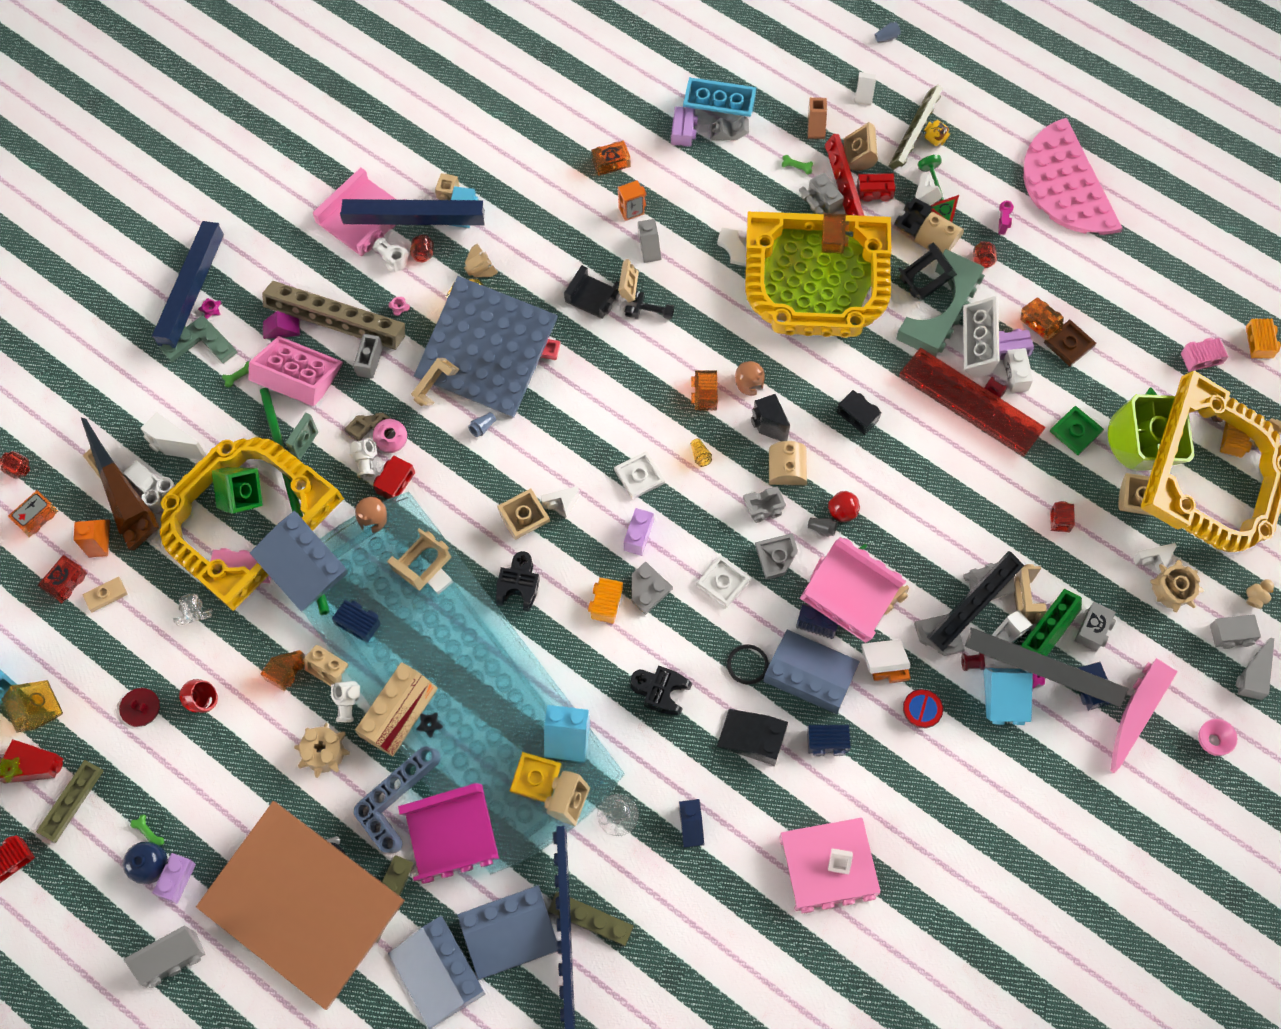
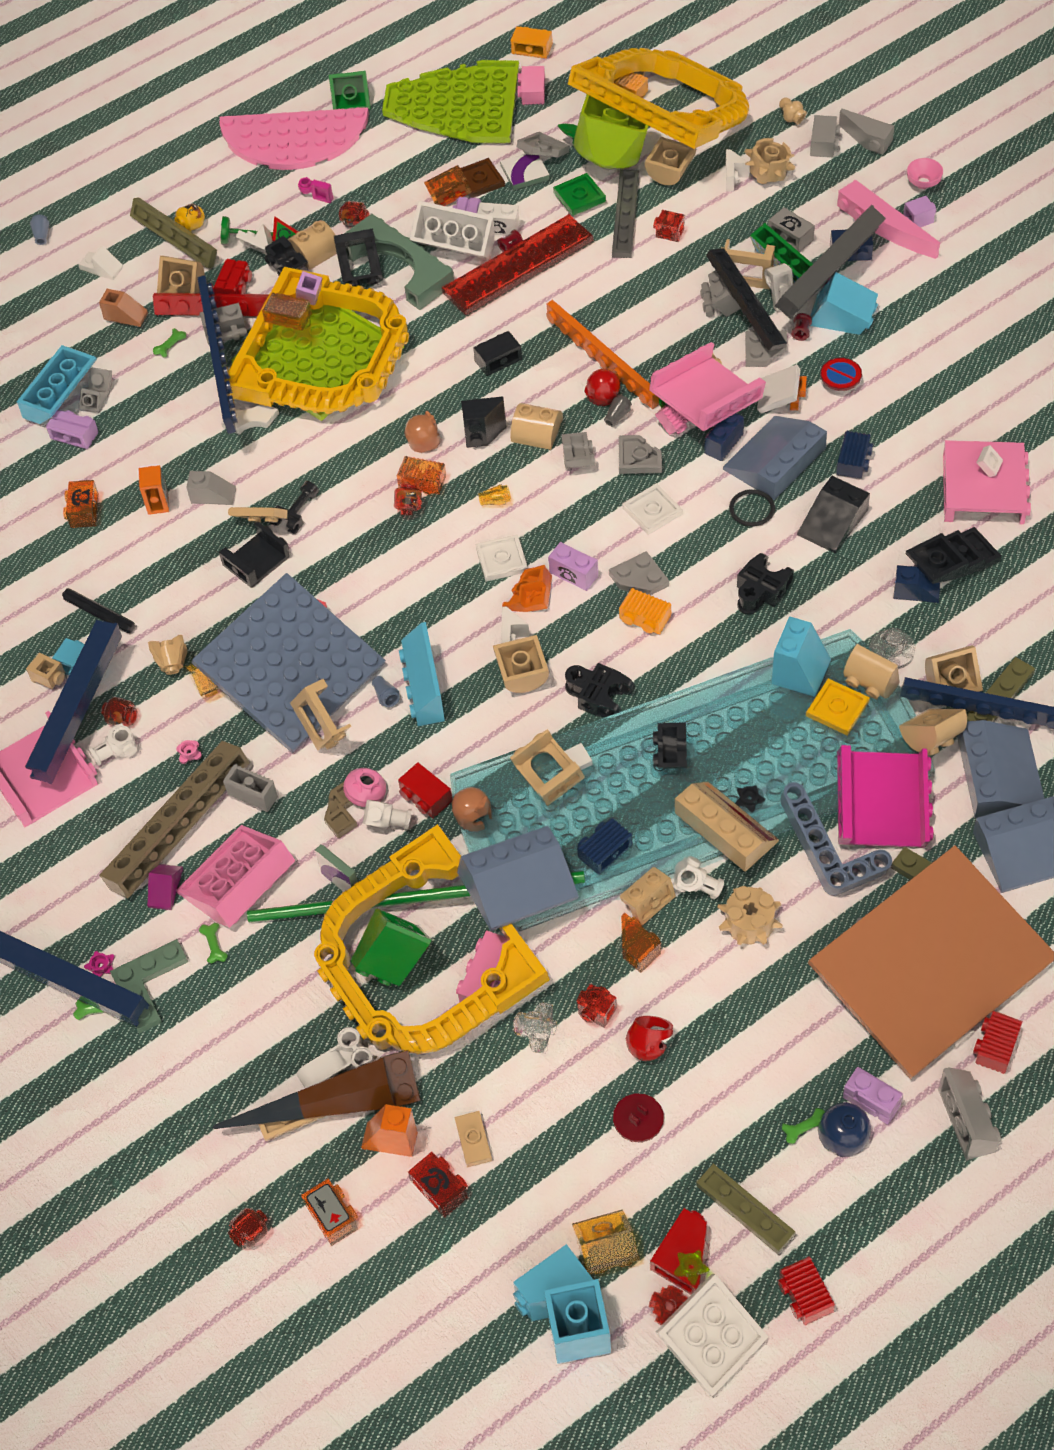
camera: 70 degrees left, 10 degrees down
(170, 439) = (285, 1020): white slope -> none
(221, 651) = (596, 1005): none -> clear red brick
(238, 971) = (998, 1041): none -> red brick
(457, 651) = (671, 746): none -> black cylinder
(498, 447) = (422, 677): none -> medium azure slope
(514, 204) = (98, 610): none -> black axle
(522, 860) = (934, 729): none -> tan brick
(595, 872) = (955, 669): none -> tan brick
(609, 507) = (531, 591): none -> orange slope
(675, 385) = (407, 499): none -> clear red head
(729, 849) = (953, 555): none -> black slope
(771, 196) = (218, 357): none -> dark blue plate
(860, 240) = (309, 287): none -> lavender brick
(888, 489) = (601, 353): none -> orange plate
(1068, 476) = (625, 214): none -> dark grey tile
(1093, 377) = (524, 170): none -> tile
(1124, 380) = (542, 145): none -> light grey plate
(1135, 207) = (349, 90): none -> green slope
(1160, 299) = (459, 103): none -> lime wing
(1161, 743) = (920, 211): none -> lavender brick

